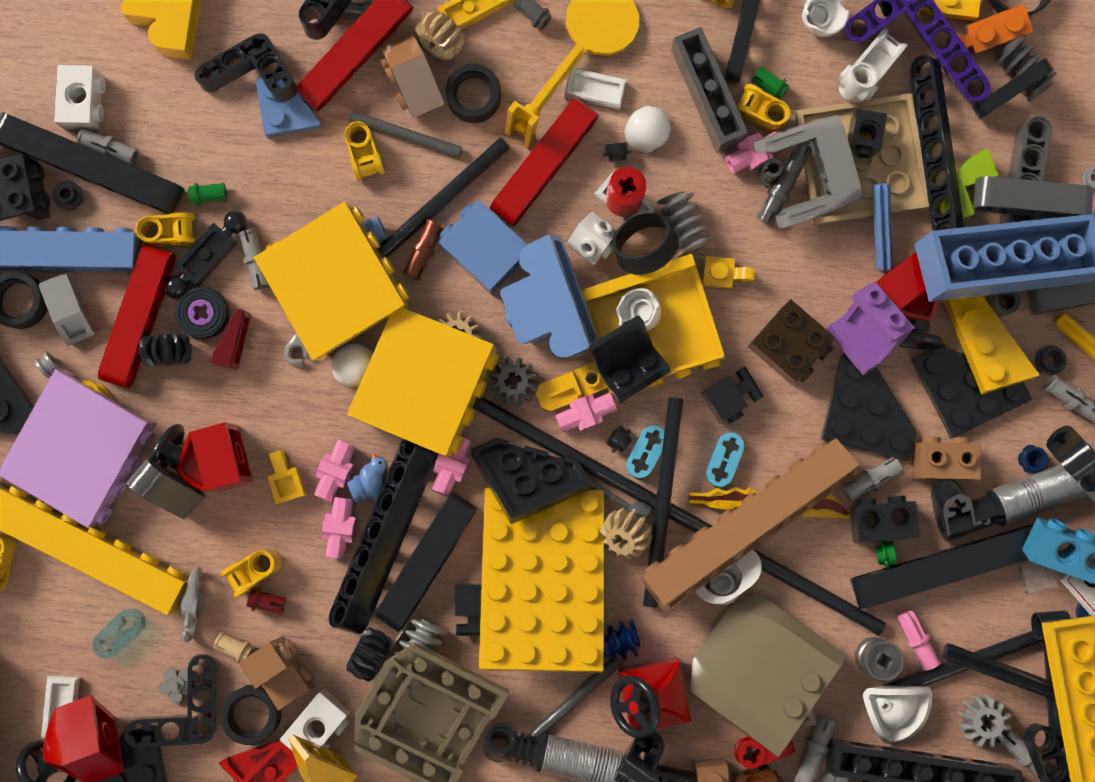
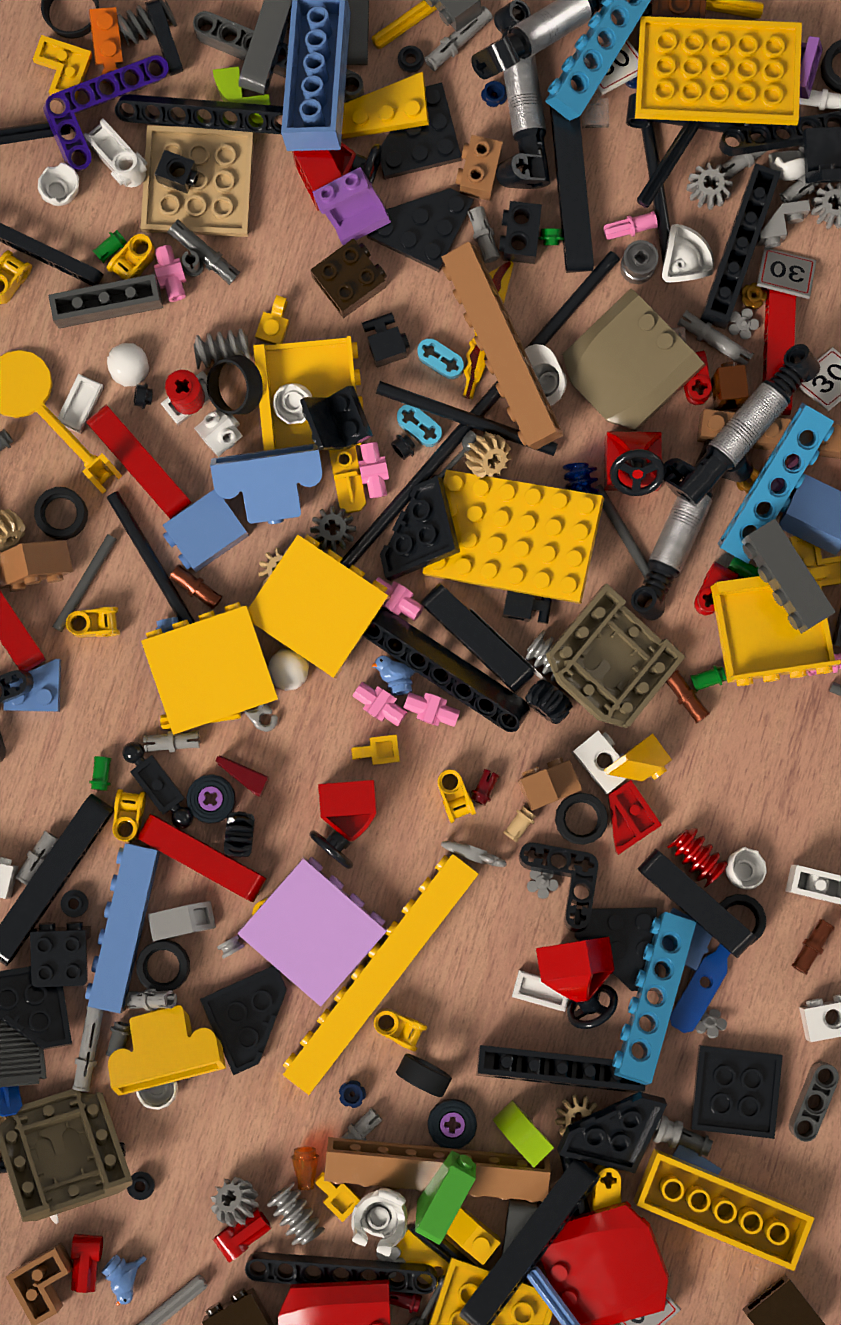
camera: 80 degrees left, 0 degrees up
(114, 628) = (491, 921): clear light blue beam -> none
(165, 489) = (366, 852): dark grey beam -> none
(833, 163) = (199, 205): light grey connector -> none
(883, 226) = (262, 176): medium blue axle -> none

